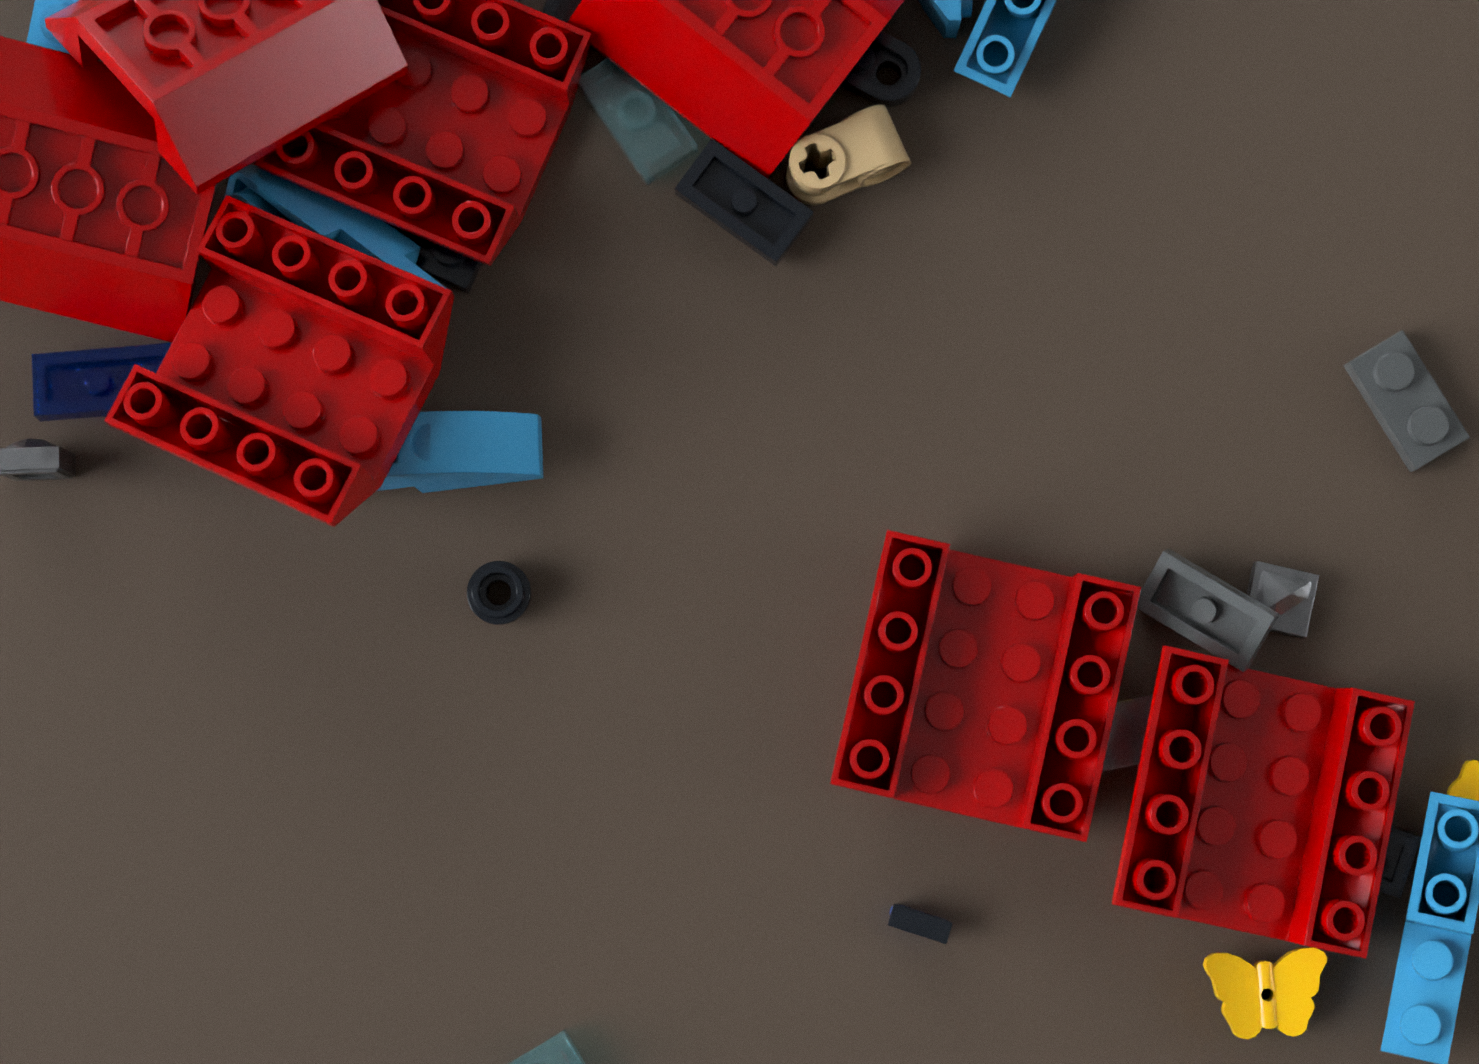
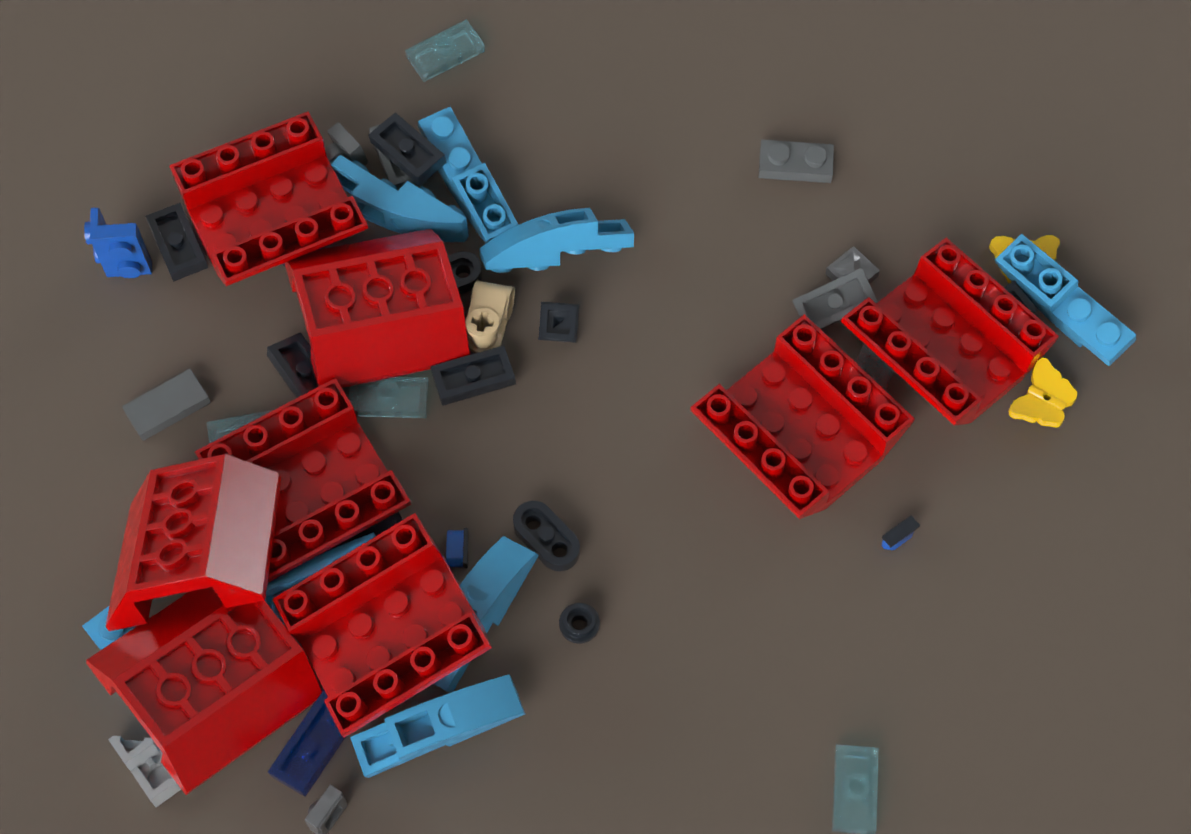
camera: 55 degrees left, 20 degrees down
(238, 524) = (436, 724): none -> dark azure slope
(492, 362) = (457, 548): none -> blue piece
(584, 466) = (548, 537): none -> black plate
(905, 257) = (559, 322): none -> black tile
(1012, 147) = (540, 240): none -> dark azure slope

